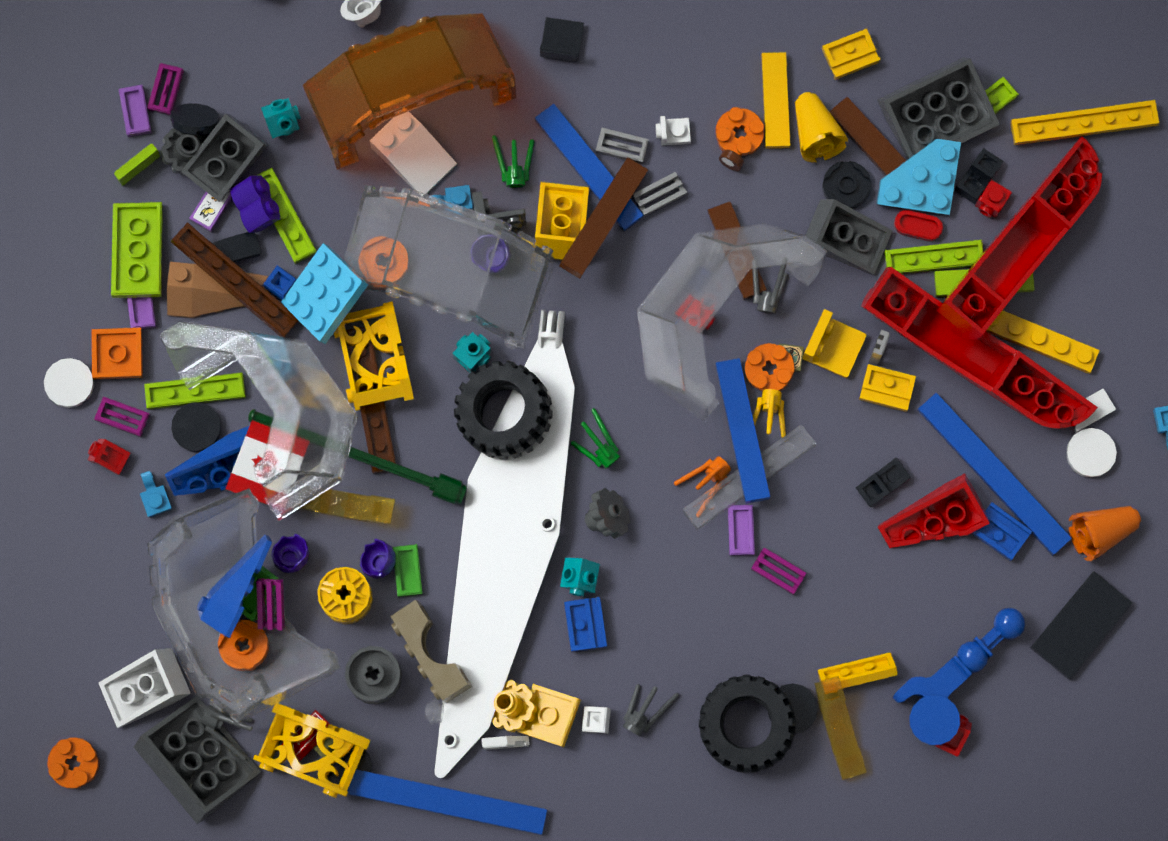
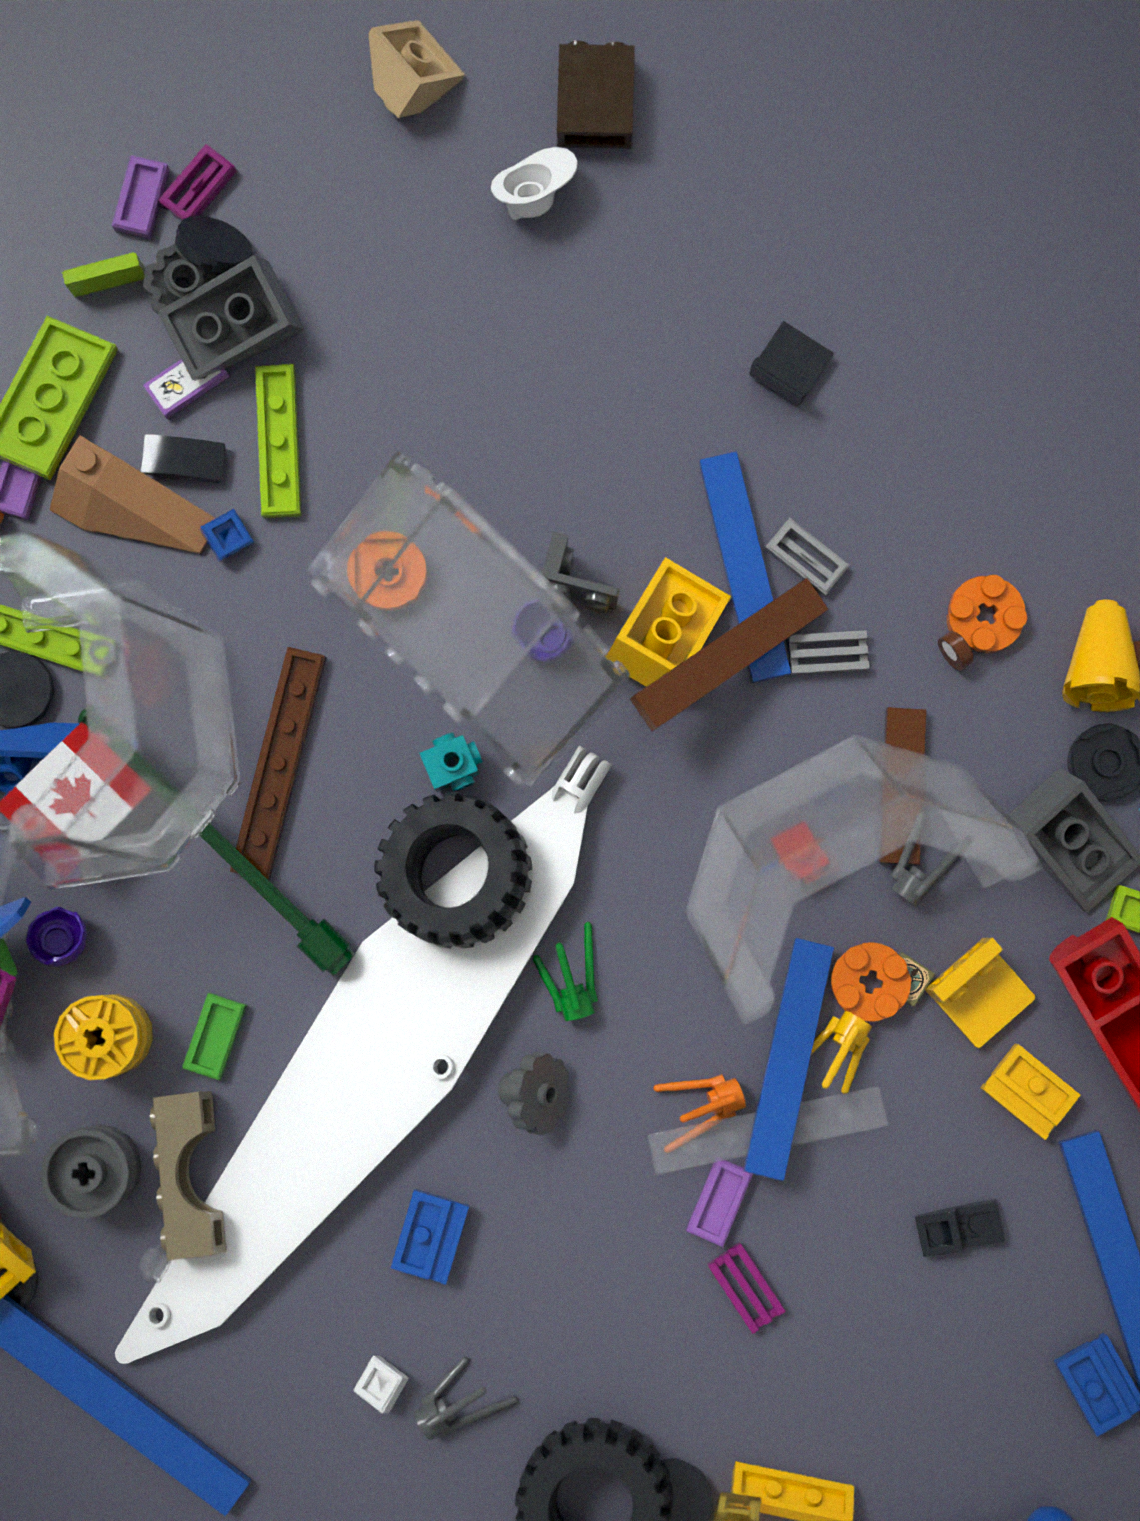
camera: 30 degrees right, 5 degrees up
(234, 280) = (160, 503): reddish brown tile -> none
(255, 203) = (242, 406): dark purple brick -> none
(281, 117) = (336, 298): teal brick -> none
(324, 293) = (275, 582): medium azure plate -> none
(353, 506) = (183, 910): clear yellow slope -> none
(377, 559) = (176, 1003): dark purple hair -> none
(396, 384) = (327, 756): yellow fence -> none
(403, 74) = (537, 309): clear orange windscreen -> none
(412, 152) = (501, 432): white slope -> none
(457, 195) = (531, 529): dark azure plate -> none
(505, 742) = (232, 1354): white tile -> none
(514, 707) = (271, 1311): yellow plant -> none
(515, 176) = (633, 531): green plant -> none
(553, 716) = (315, 1346): yellow plate -> none
(579, 576) = (453, 1164): teal brick -> none
(673, 131) = (890, 569): white bracket -> none
(775, 100) = (1060, 590): yellow tile -> none
(879, 347) = (1055, 1027): light grey tile -> none
(940, 514) = (1025, 1315): red wedge -> none

